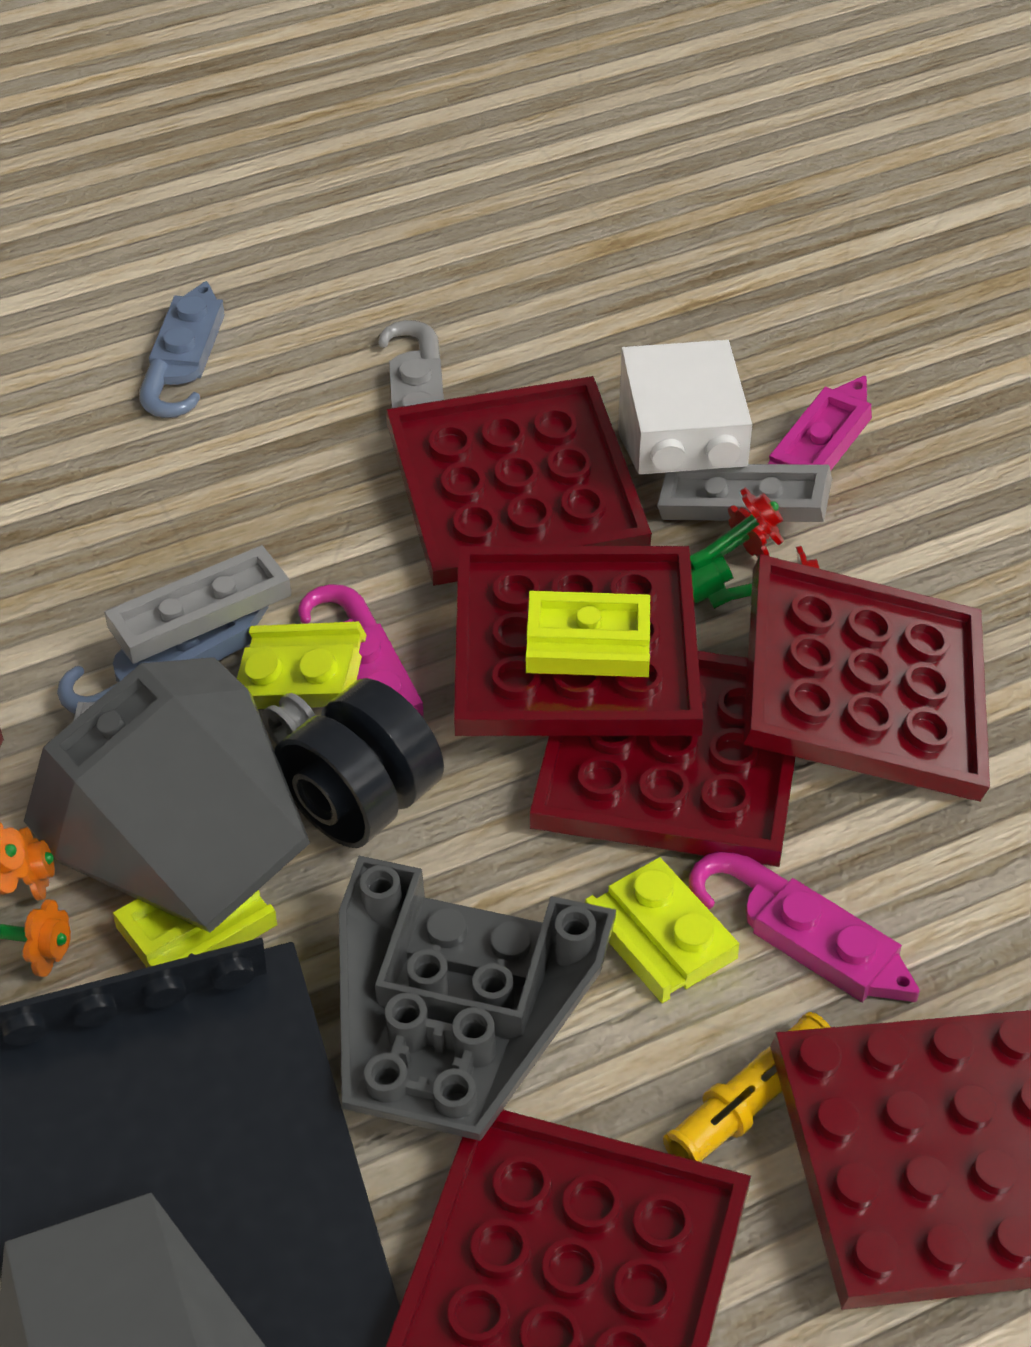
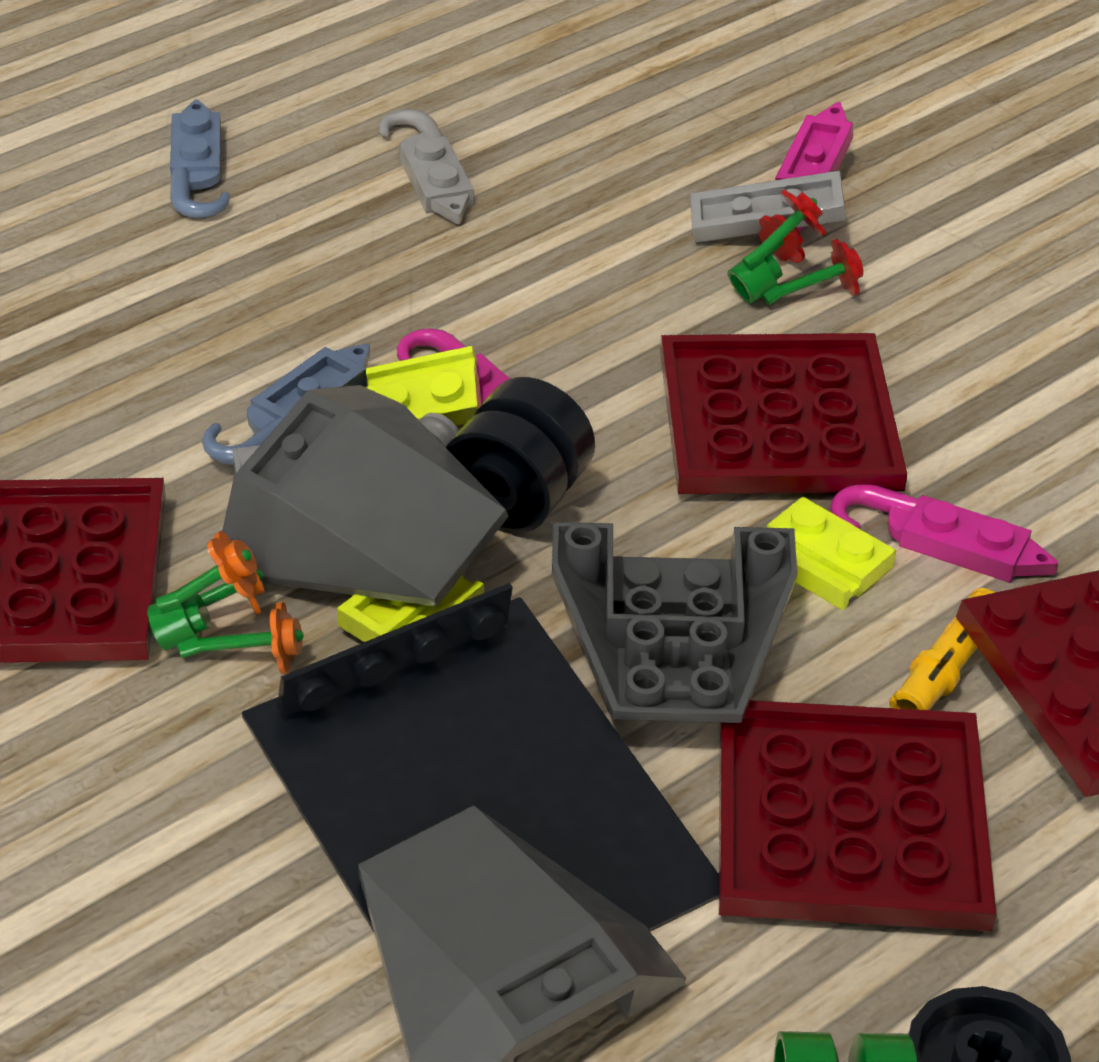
camera: 15 degrees left, 5 degrees down
(197, 603) = (315, 353): light grey plate -> none
(491, 644) = (670, 336): dark red plate -> none
(515, 472) = (558, 223): dark red plate -> none
(588, 634) = (688, 322): neon yellow plate -> none
(683, 407) = (694, 141): white slope -> none
(867, 678) = (929, 333): dark red plate -> none

